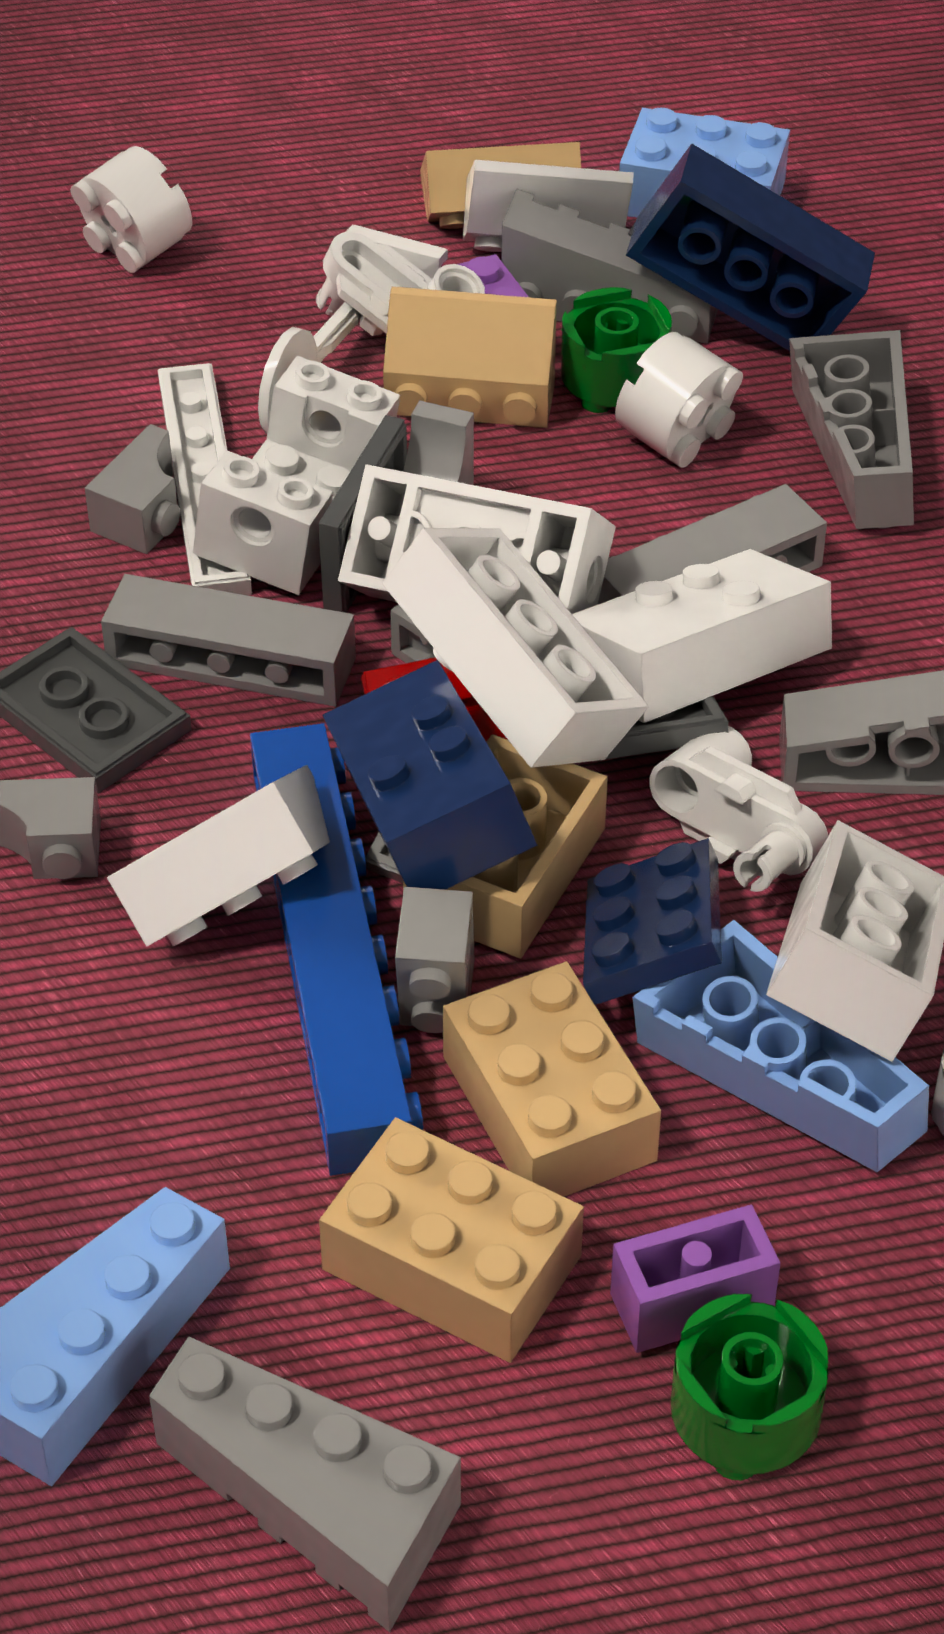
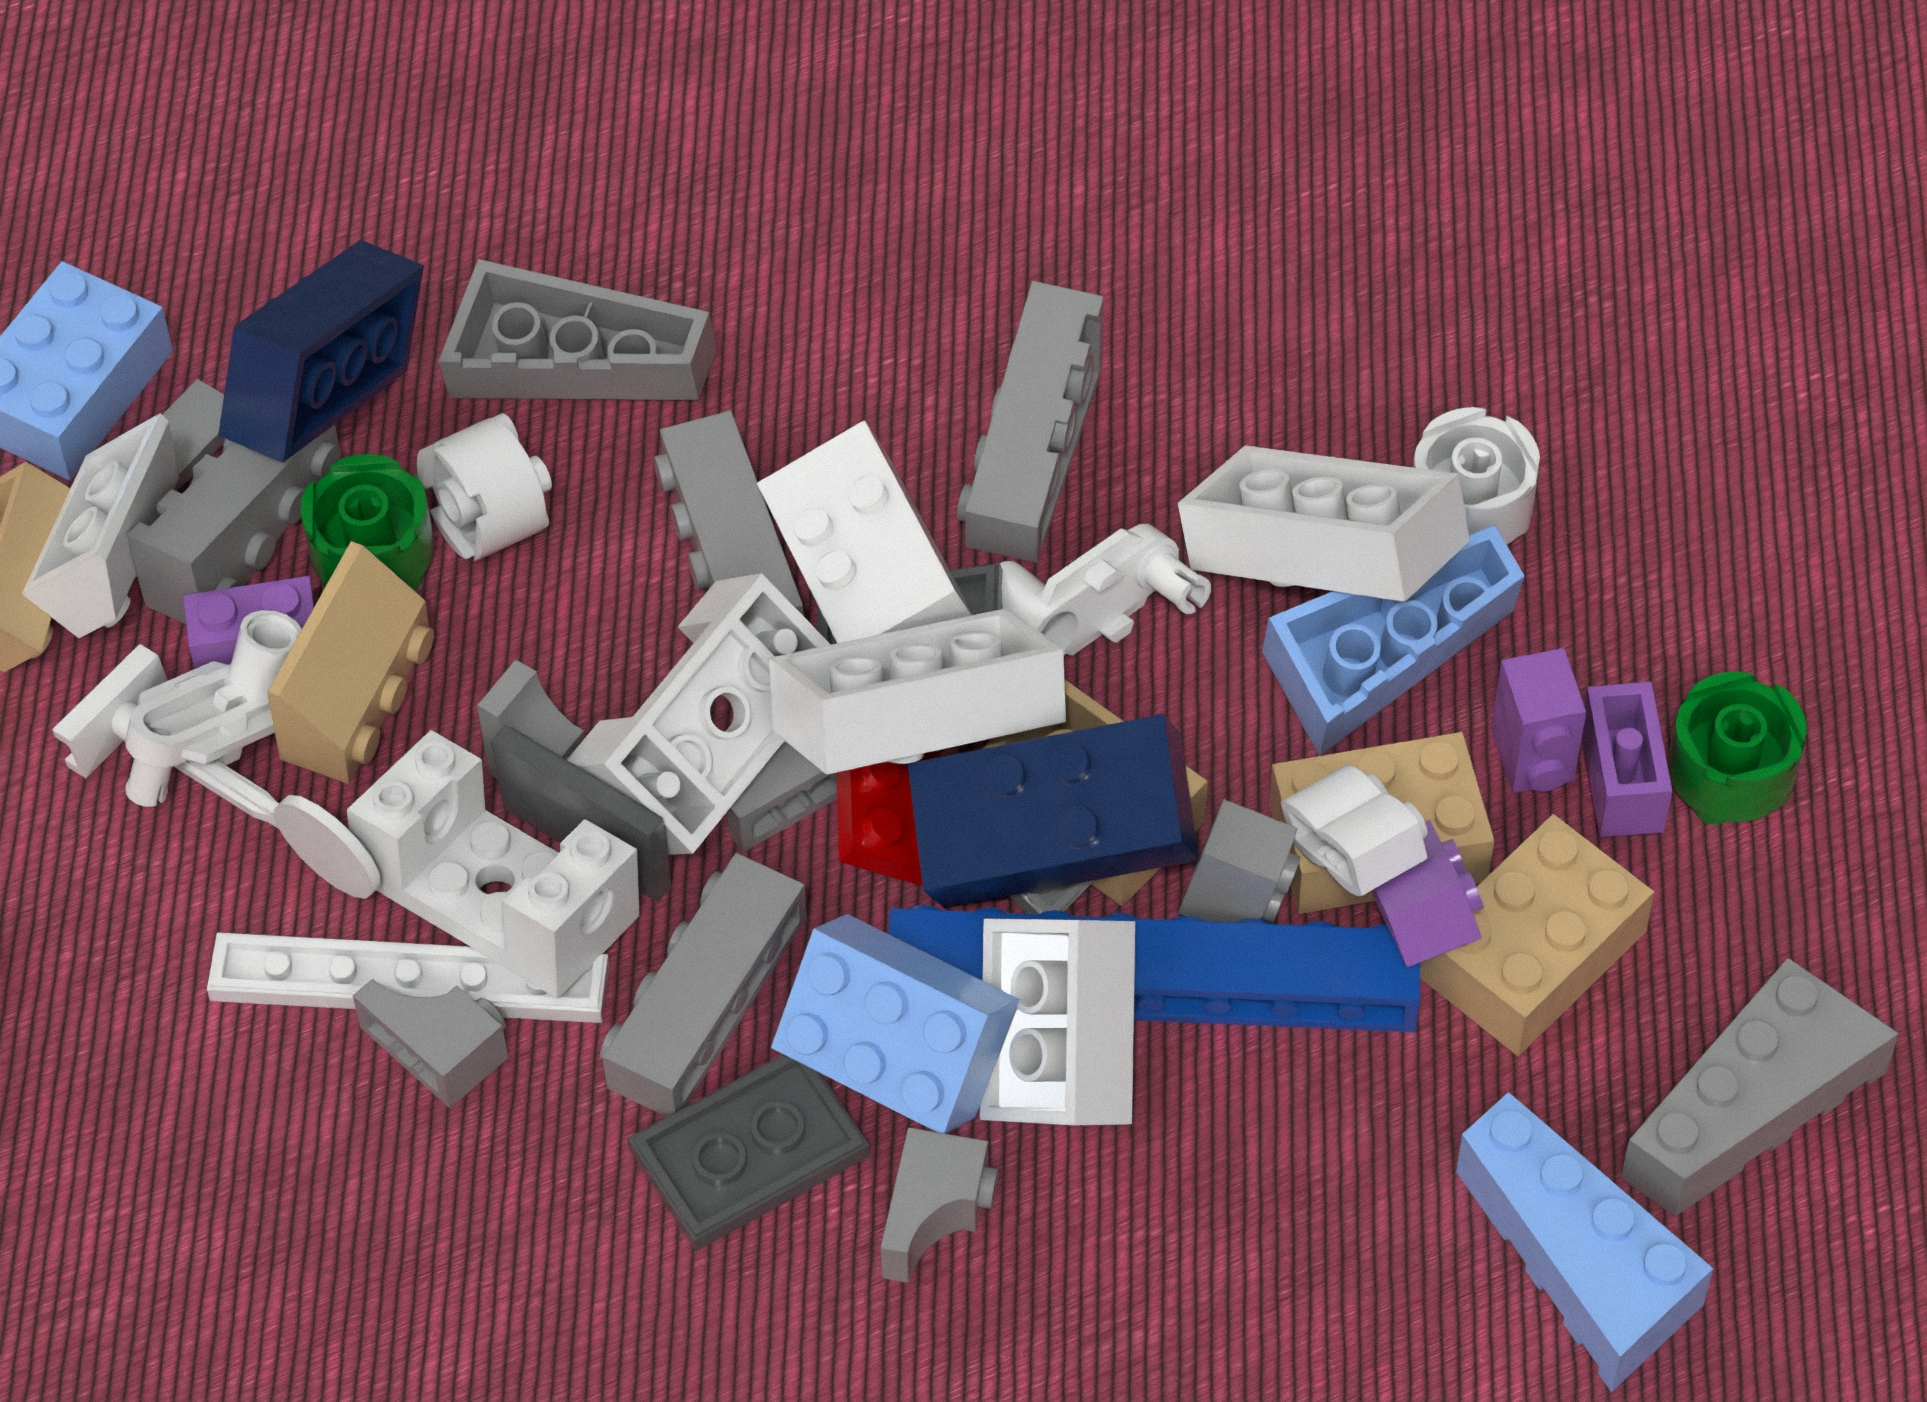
camera: 75 degrees left, 10 degrees up
(193, 741) = (894, 1023): none -> light blue brick
(428, 1086) = (1431, 903): none -> medium lavender brick
(468, 1001) = (1356, 829): none -> white brick
(652, 921) = (1235, 685): dark blue plate -> none
(705, 1167) = (1538, 721): none -> medium lavender brick

